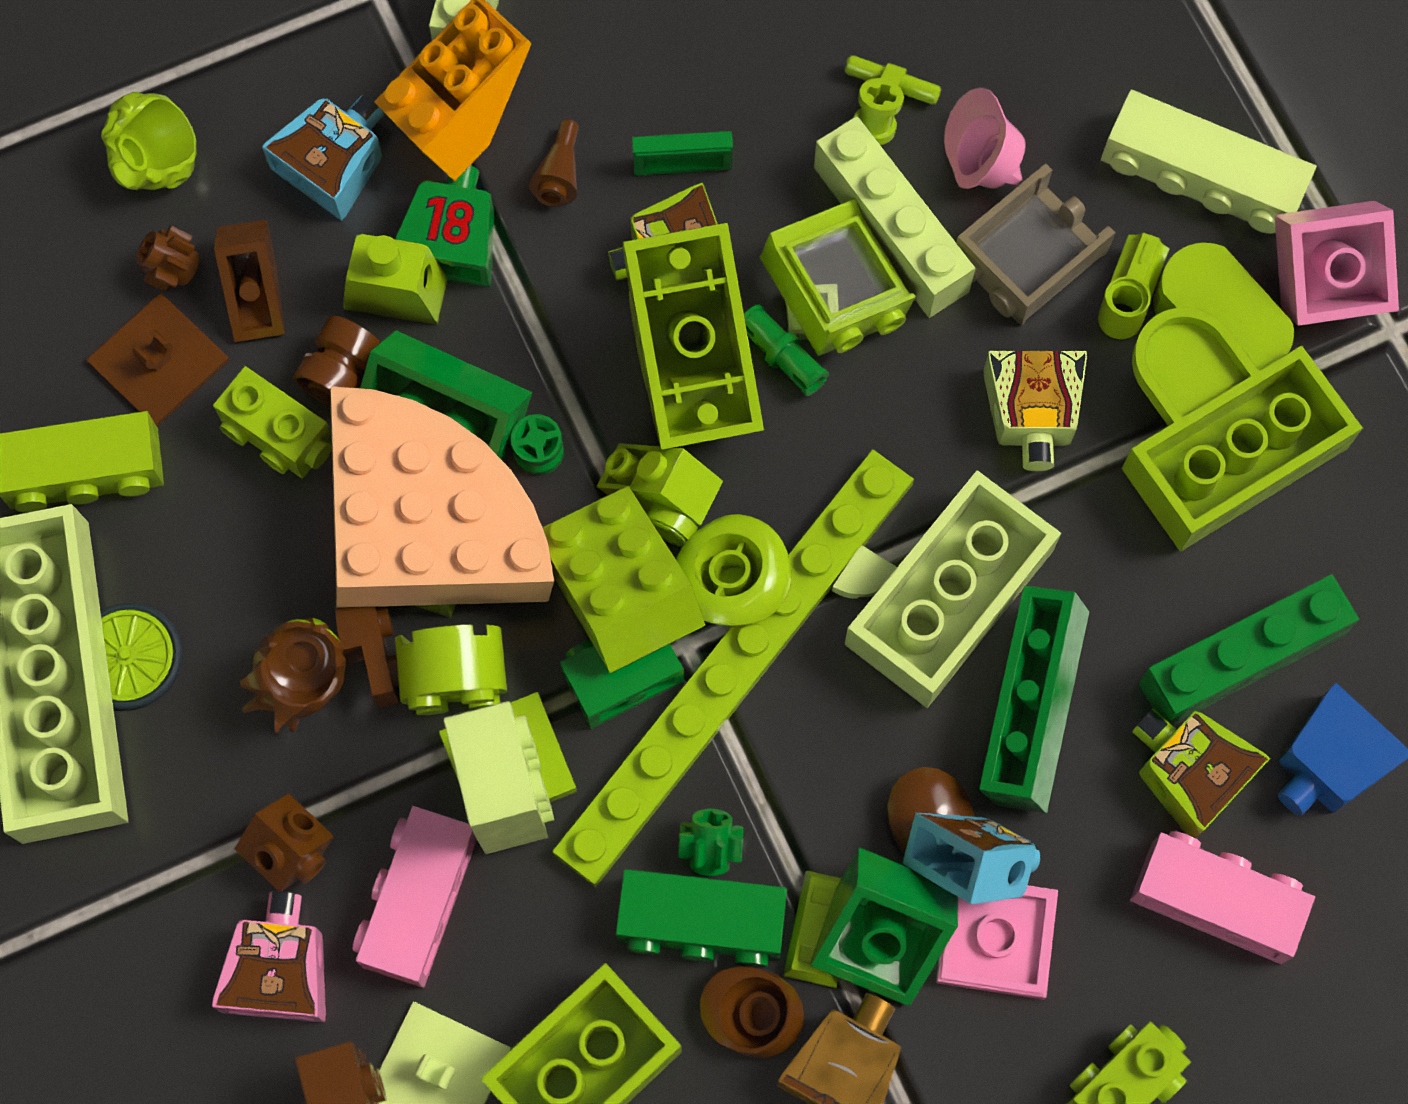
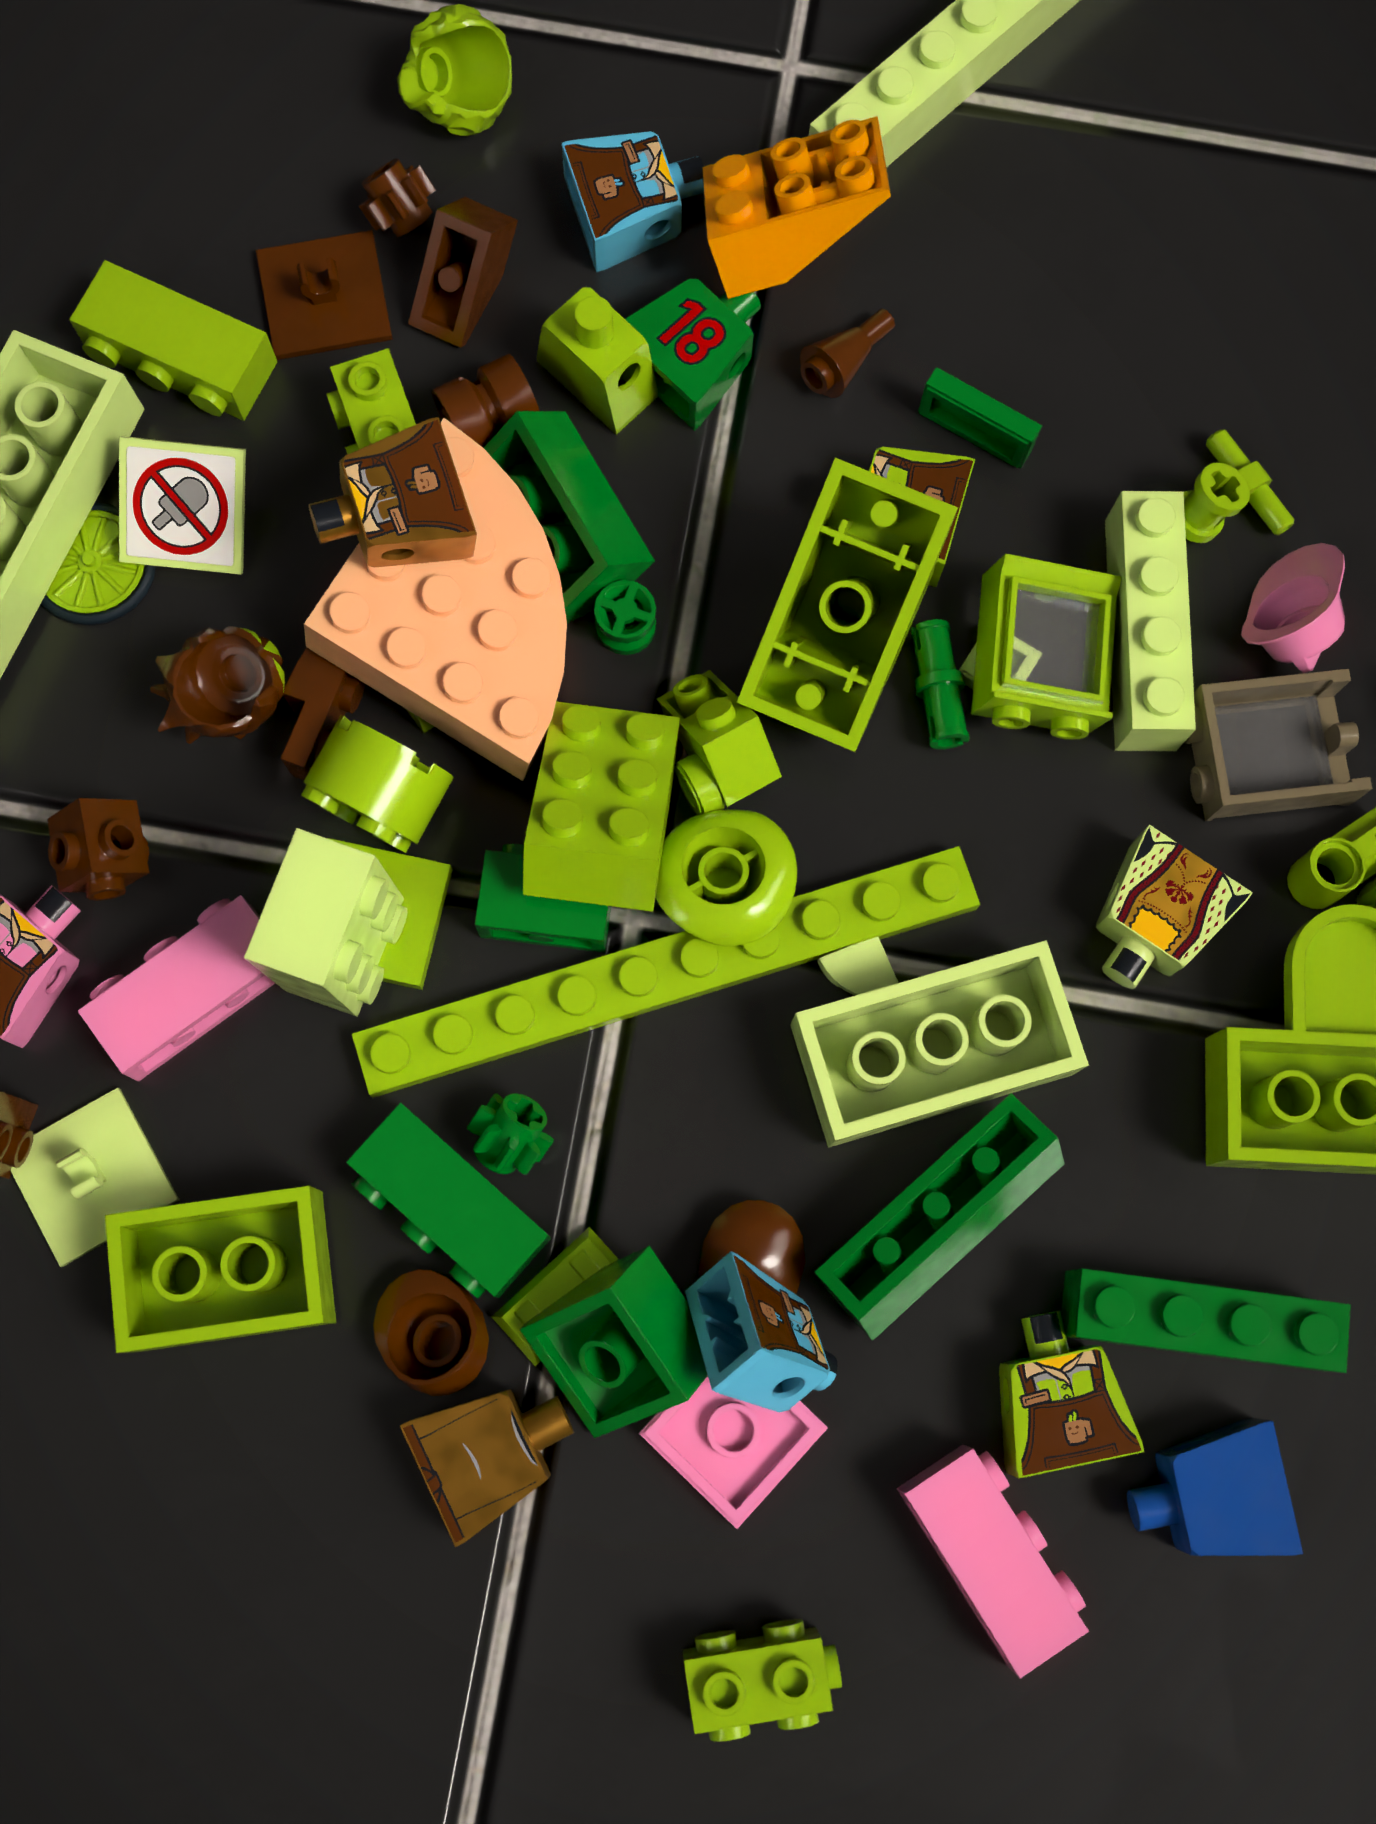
camera: 30 degrees right, 5 degrees up
(171, 570) = (181, 505): none -> piece
(352, 459) = (400, 501): none -> torso

